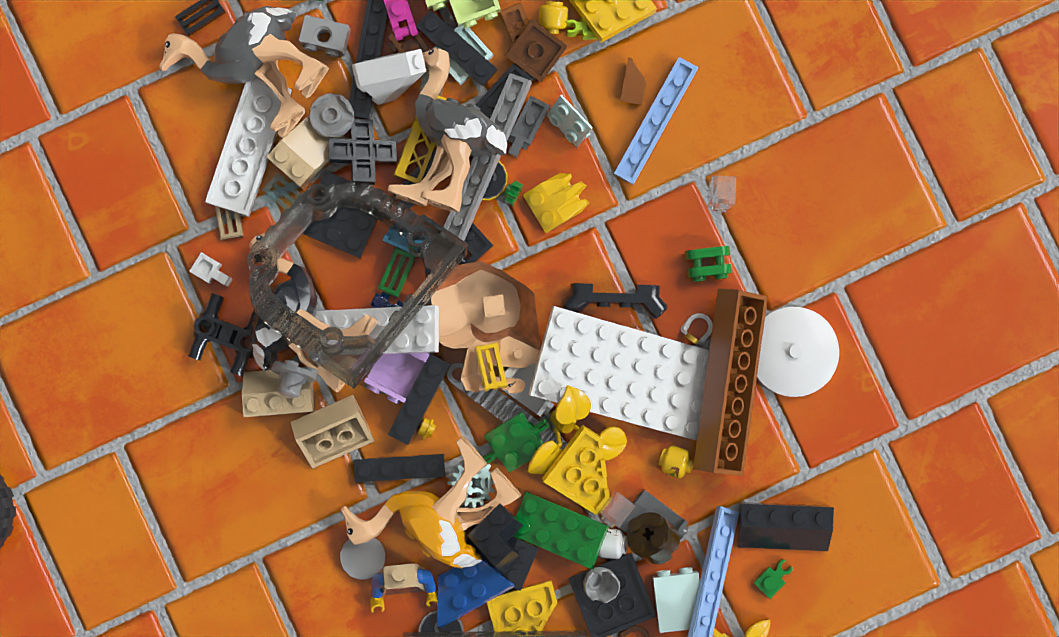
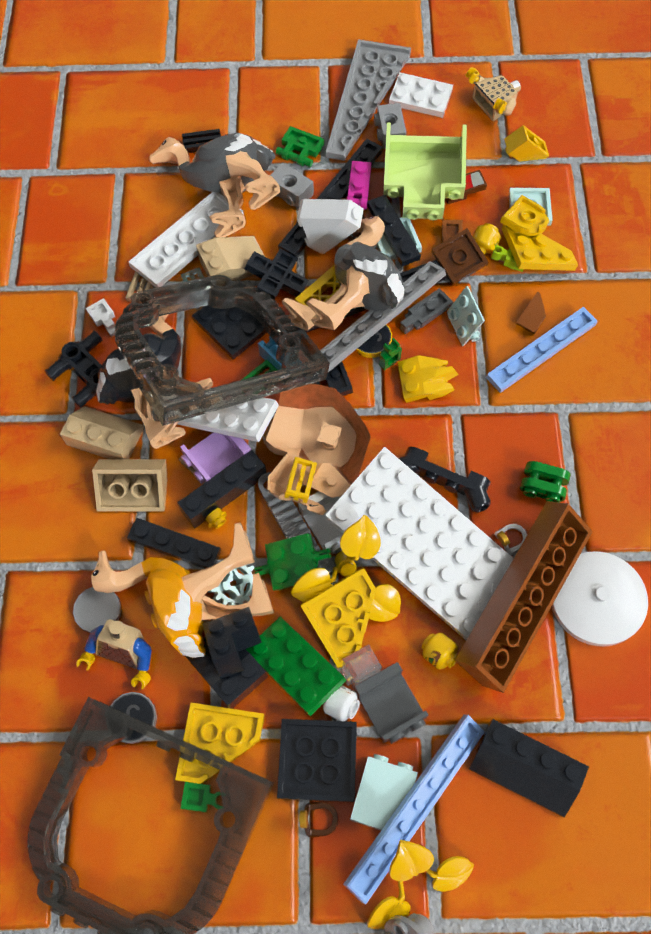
camera: 30 degrees right, 20 degrees down
(292, 377) = (120, 413): light grey plate -> none
(331, 115) = (265, 239): light grey tile -> none
(468, 589) = (176, 682): blue wing -> none
(601, 584) = (311, 736): light grey hair -> none
(652, 537) = (385, 712): dark brown brick -> none
(721, 193) = (581, 423): clear piece -> none
(771, 581) = (491, 821): green plate -> none

